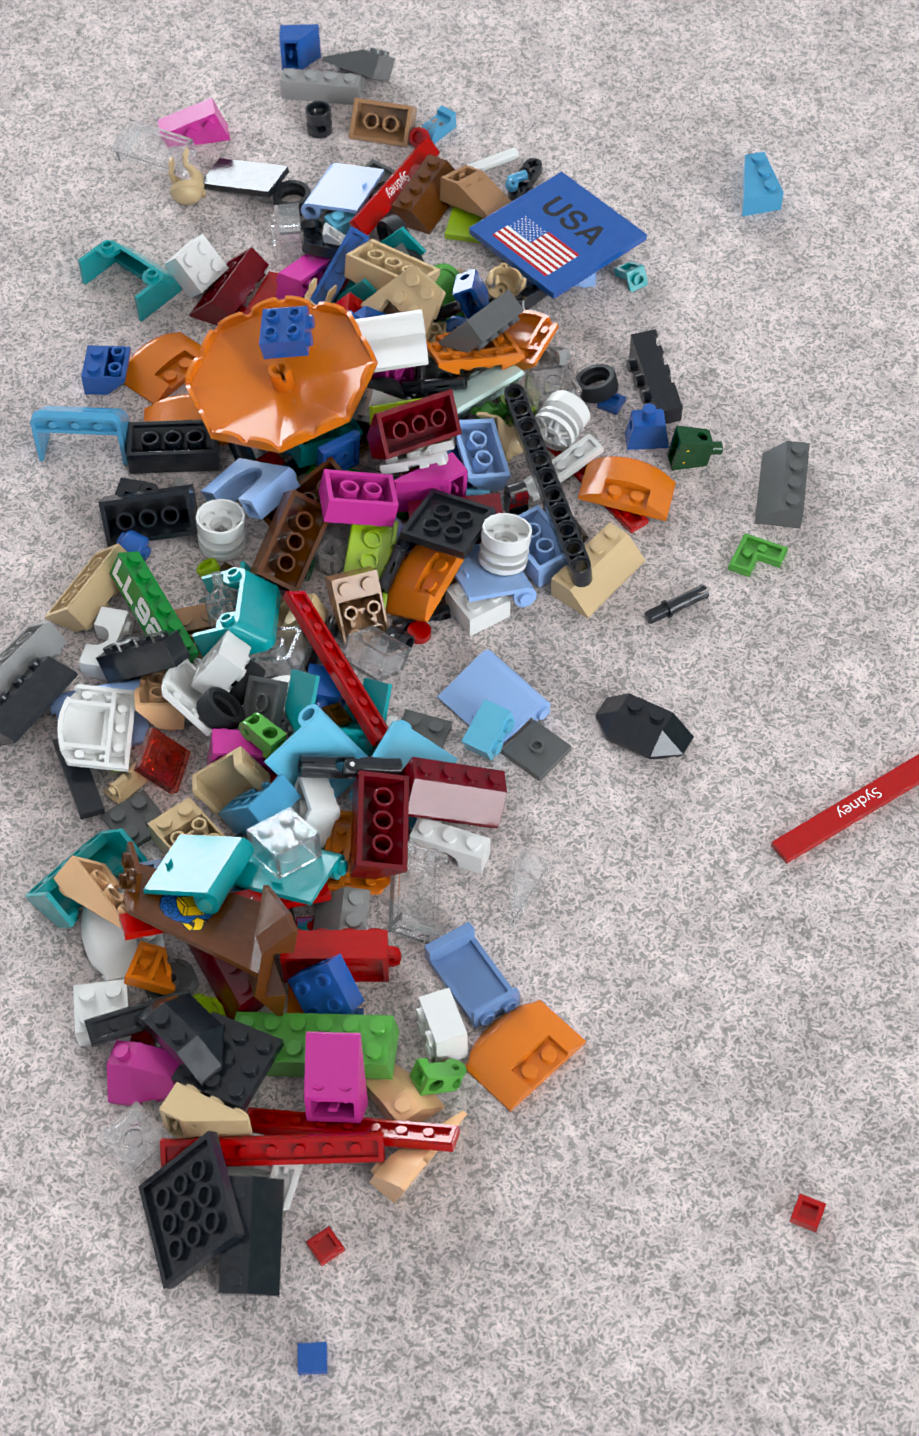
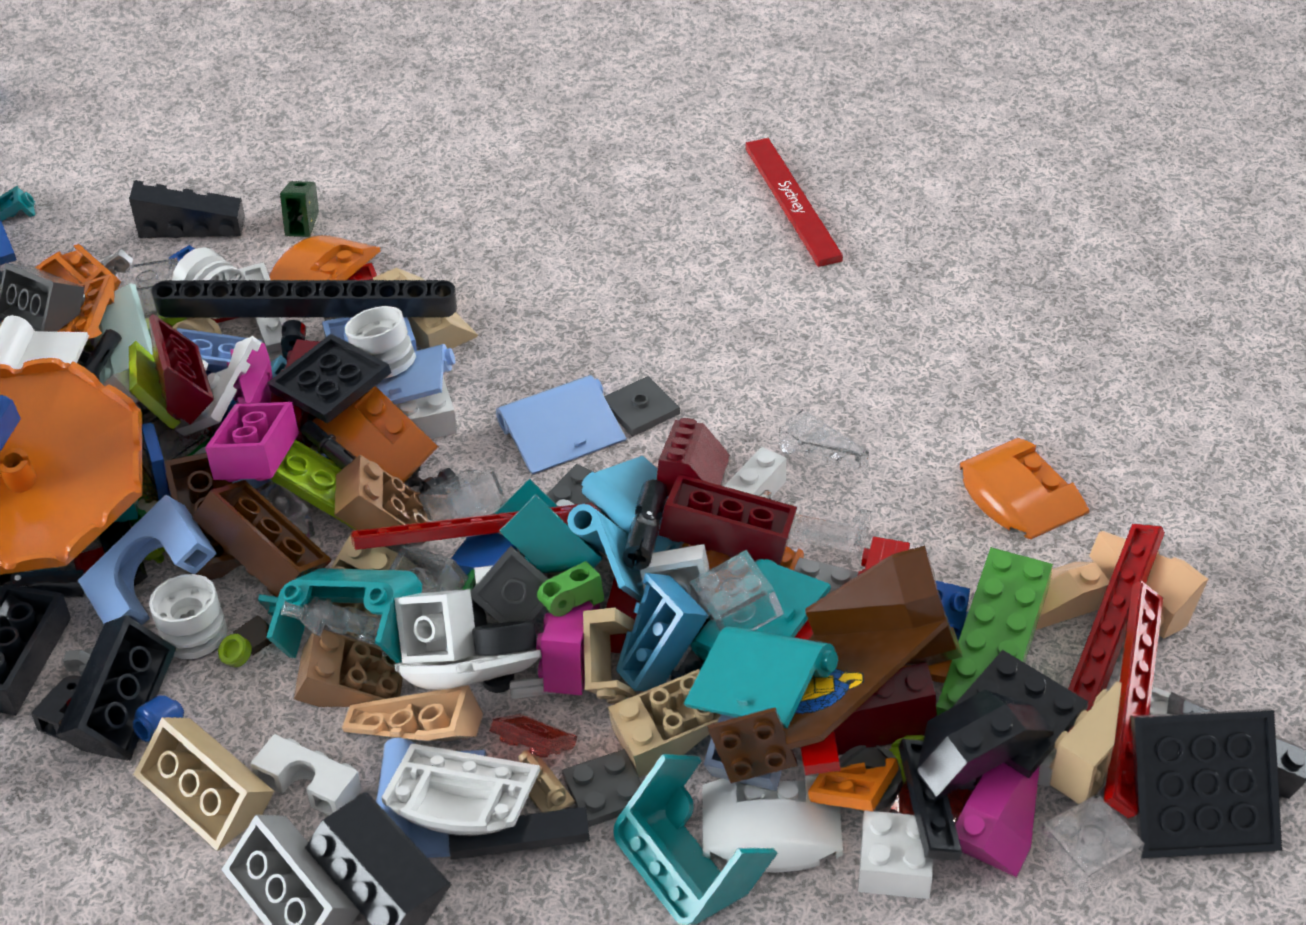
camera: 75 degrees left, 10 degrees down
(93, 887) = (717, 831): light nougat wedge -> none
(142, 655) = (376, 706): black wedge -> none
(147, 598) = (297, 697): green brick -> none
(325, 1246) = (1237, 691): red tile -> none
(334, 1077) = (1062, 613): dark pink slope -> none
(420, 631) = (431, 467): red tile -> none
(437, 1077) = (1050, 547): bright green leg -> none
(442, 1026) = (994, 523): white brick -> none
(471, 976) = (926, 506): medium blue panel -> none
(488, 730) = (608, 428): medium azure brick -> none
(601, 392) = (157, 243): black tyre -> none
(643, 727) = (641, 320): black wedge -> none
(646, 429) = (253, 231): blue torso -> none
(670, 607) = (498, 270): black axle -> none
(756, 549) = (454, 201): bright green tile -> none
(783, 485) = (383, 158): dark grey slope -> none
(807, 1212) = (1234, 323): red plate -> none

